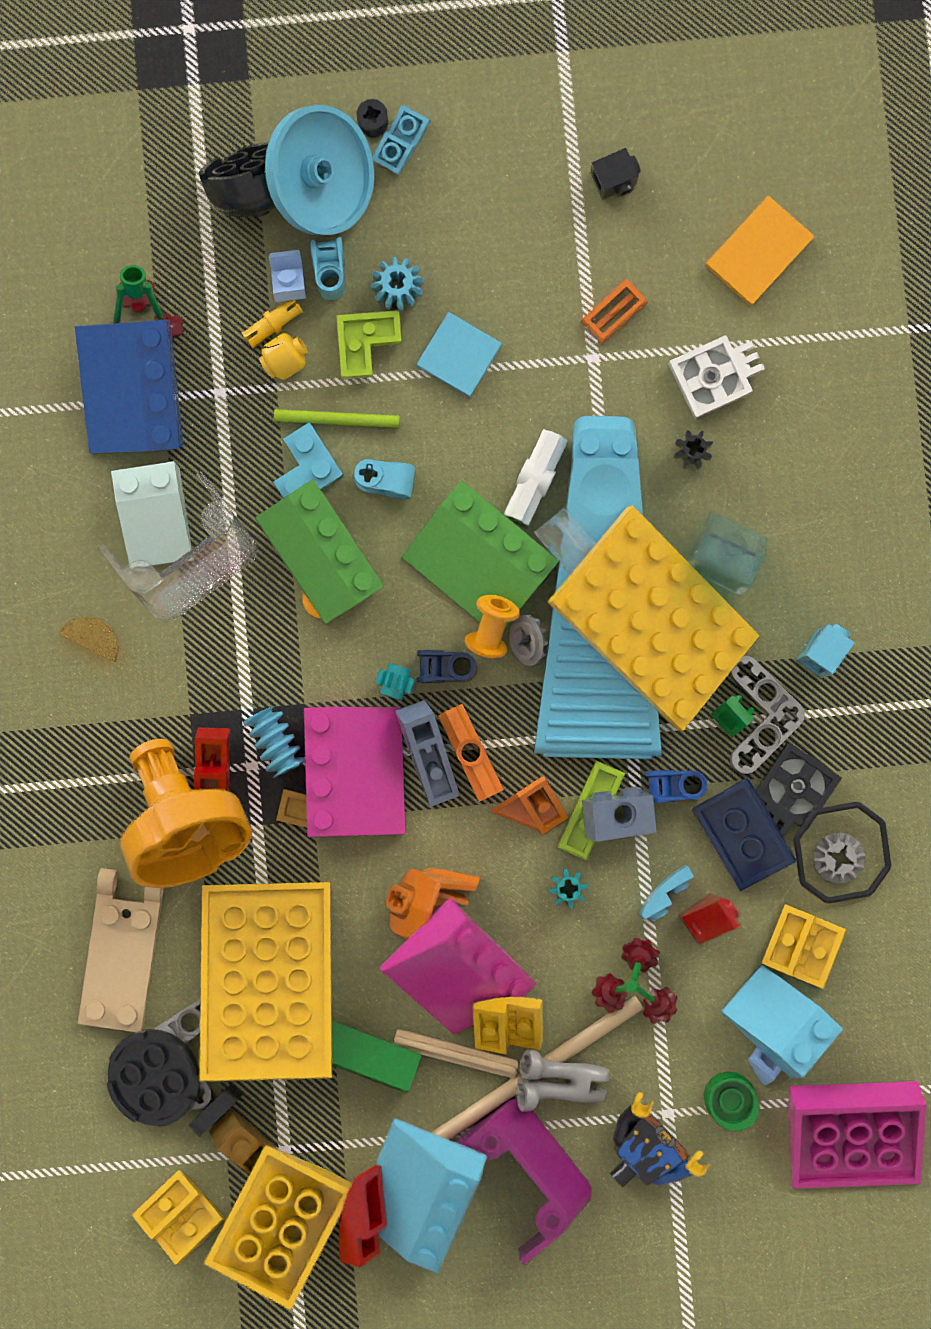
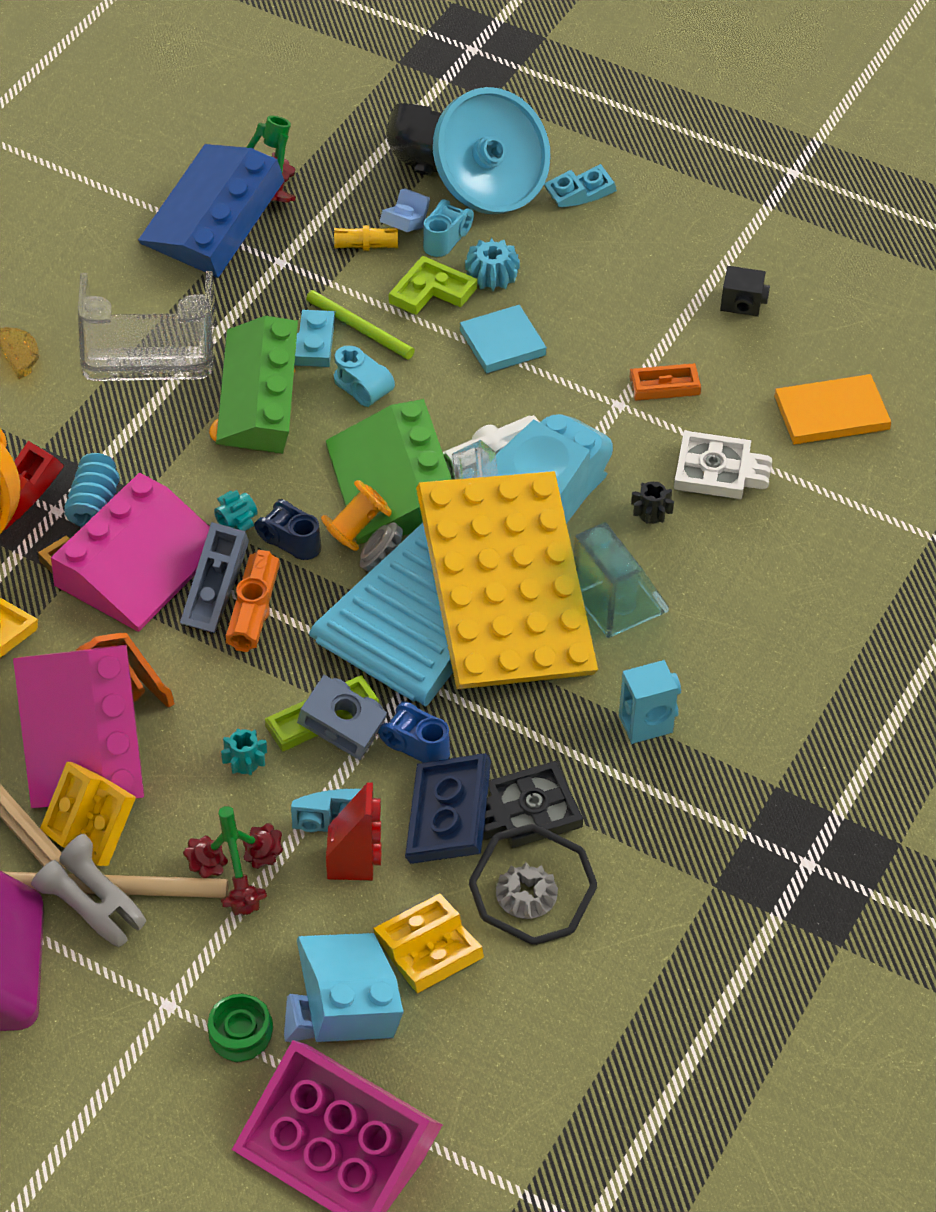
camera: 35 degrees right, 35 degrees down
(152, 512) = (153, 282): light aqua slope -> none
(283, 356) = (353, 258): yellow head -> none
(373, 125) = (568, 157): black wheel -> none
(533, 807) = (271, 668): orange slope -> none
(650, 1149) = (122, 1004): torso -> none
(733, 715) = (520, 711): green tile -> none
(772, 709) = (563, 734): light grey beam -> none

